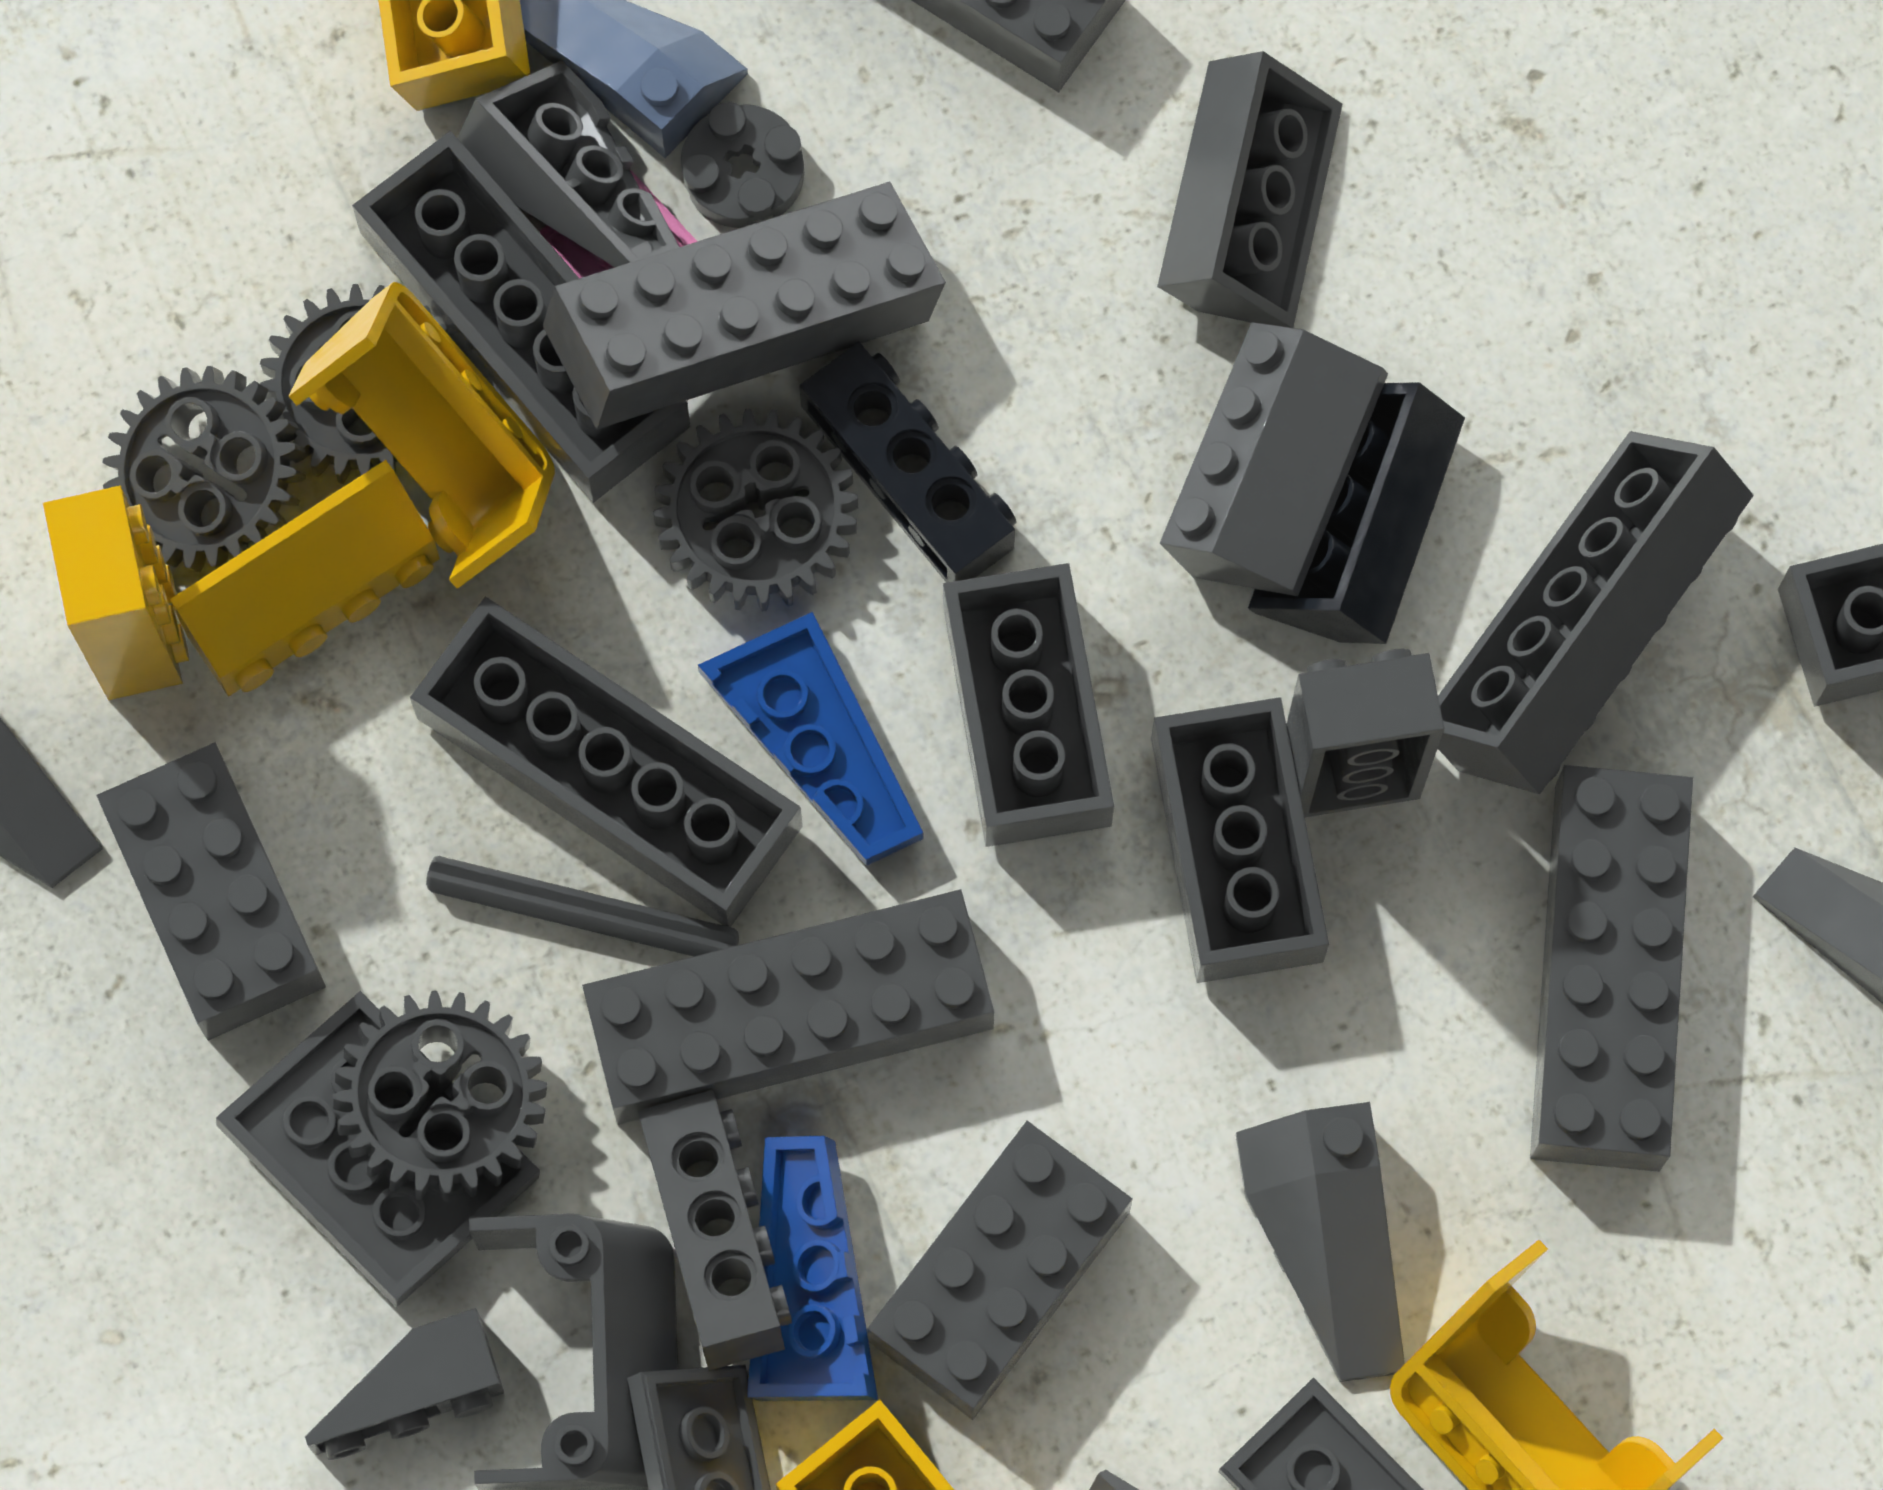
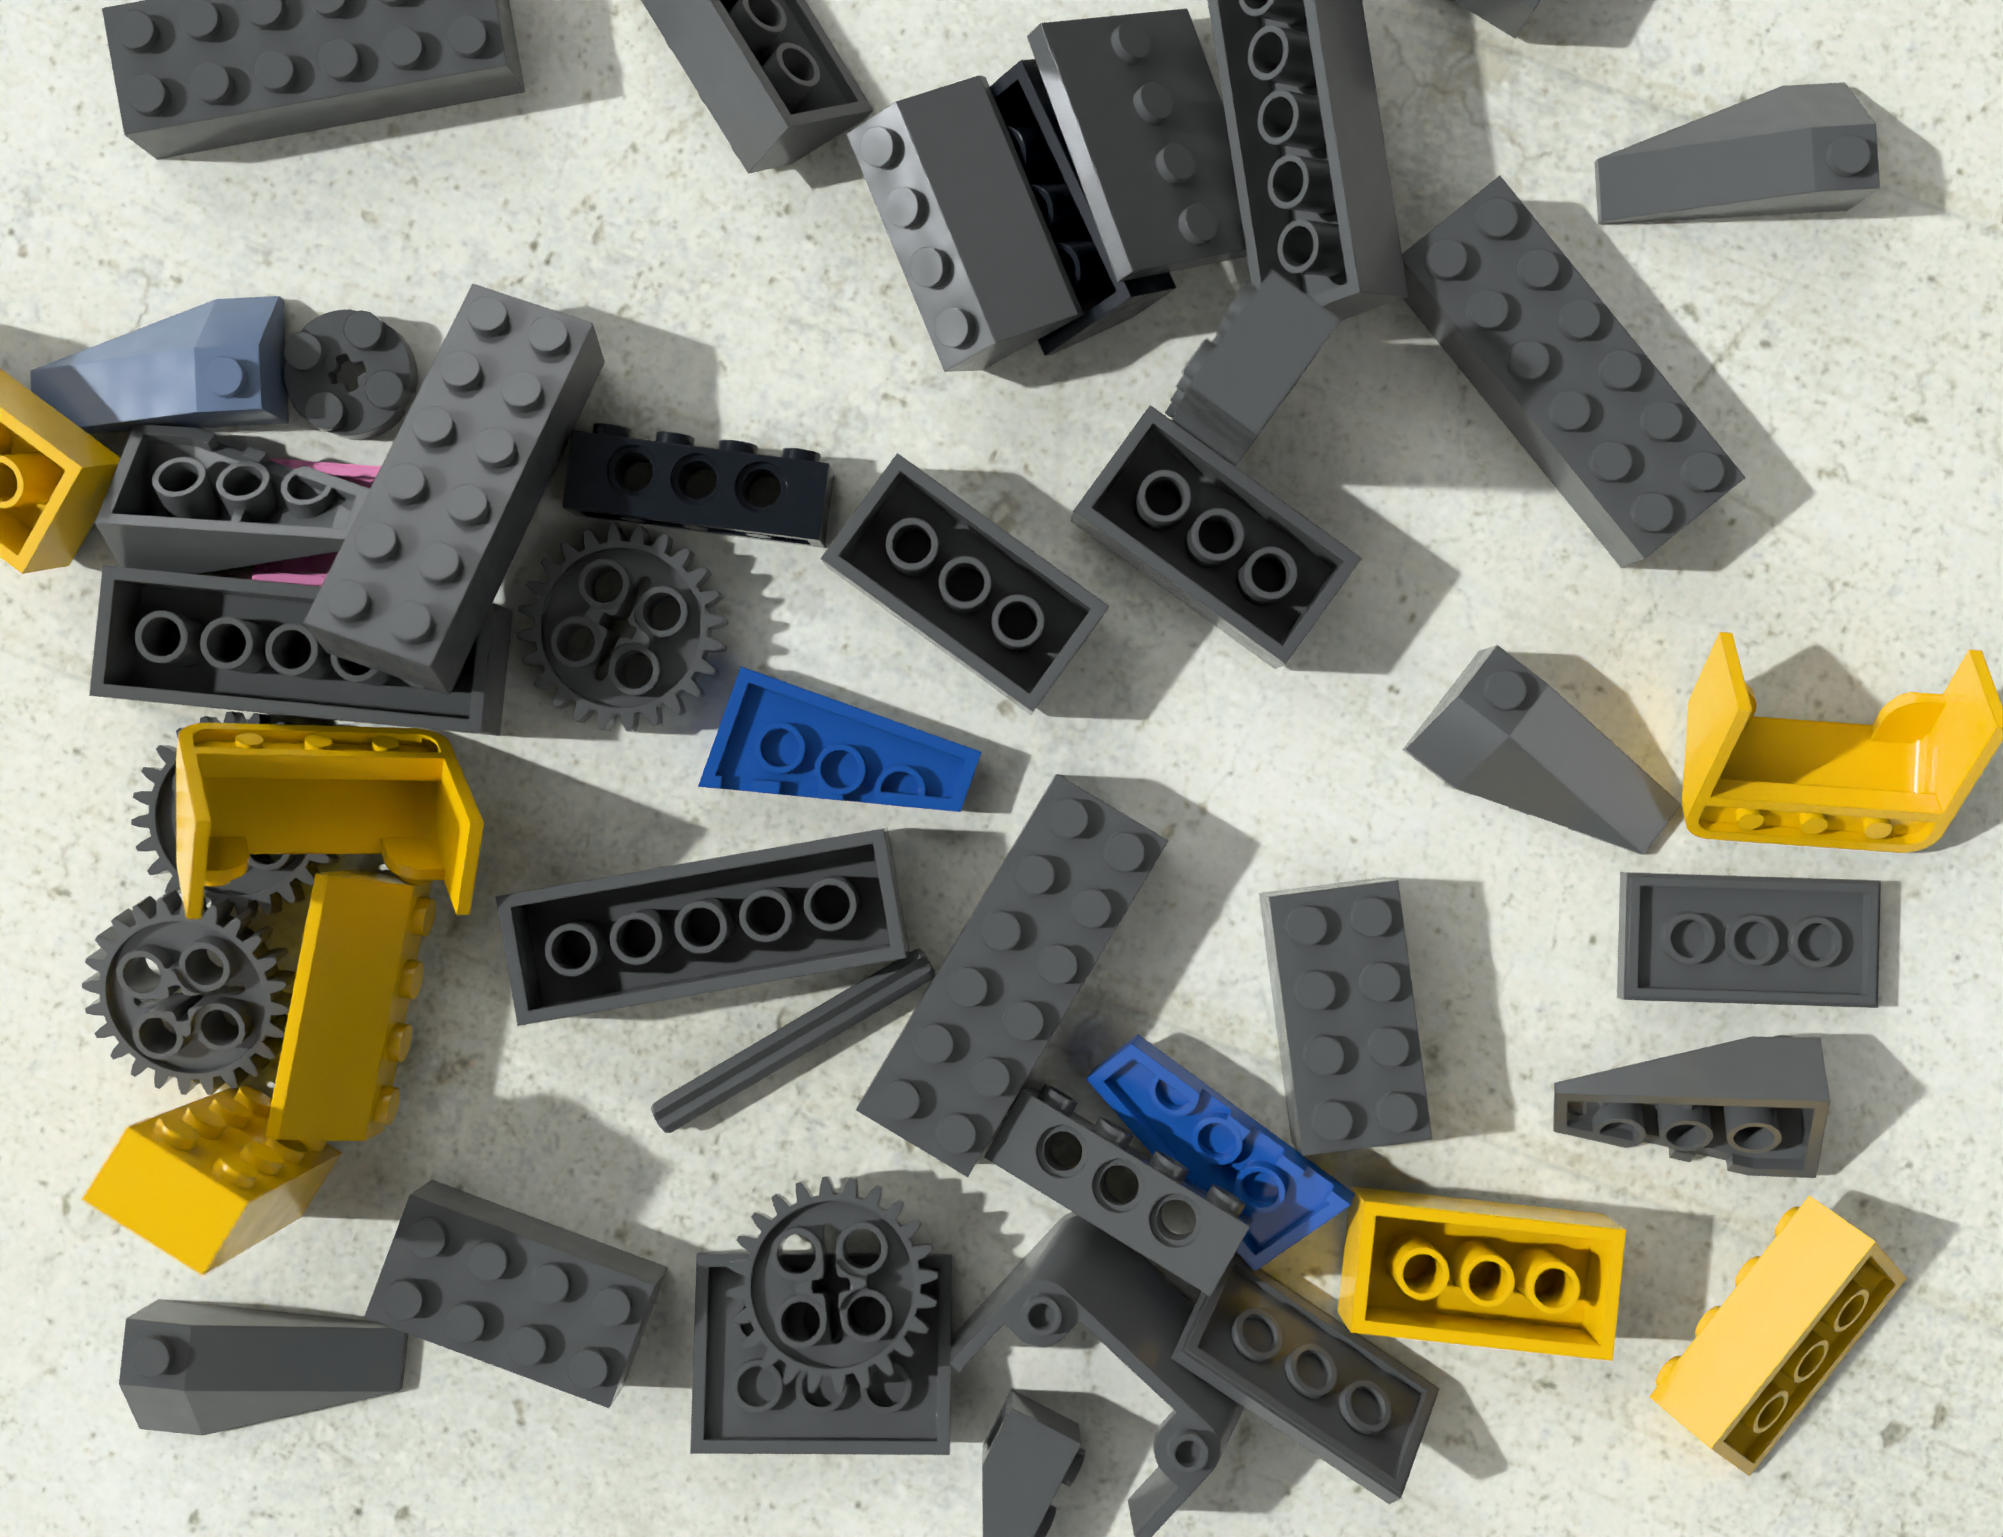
camera: 45 degrees left, 15 degrees up
(1461, 518) = (1144, 138): none -> dark grey plate

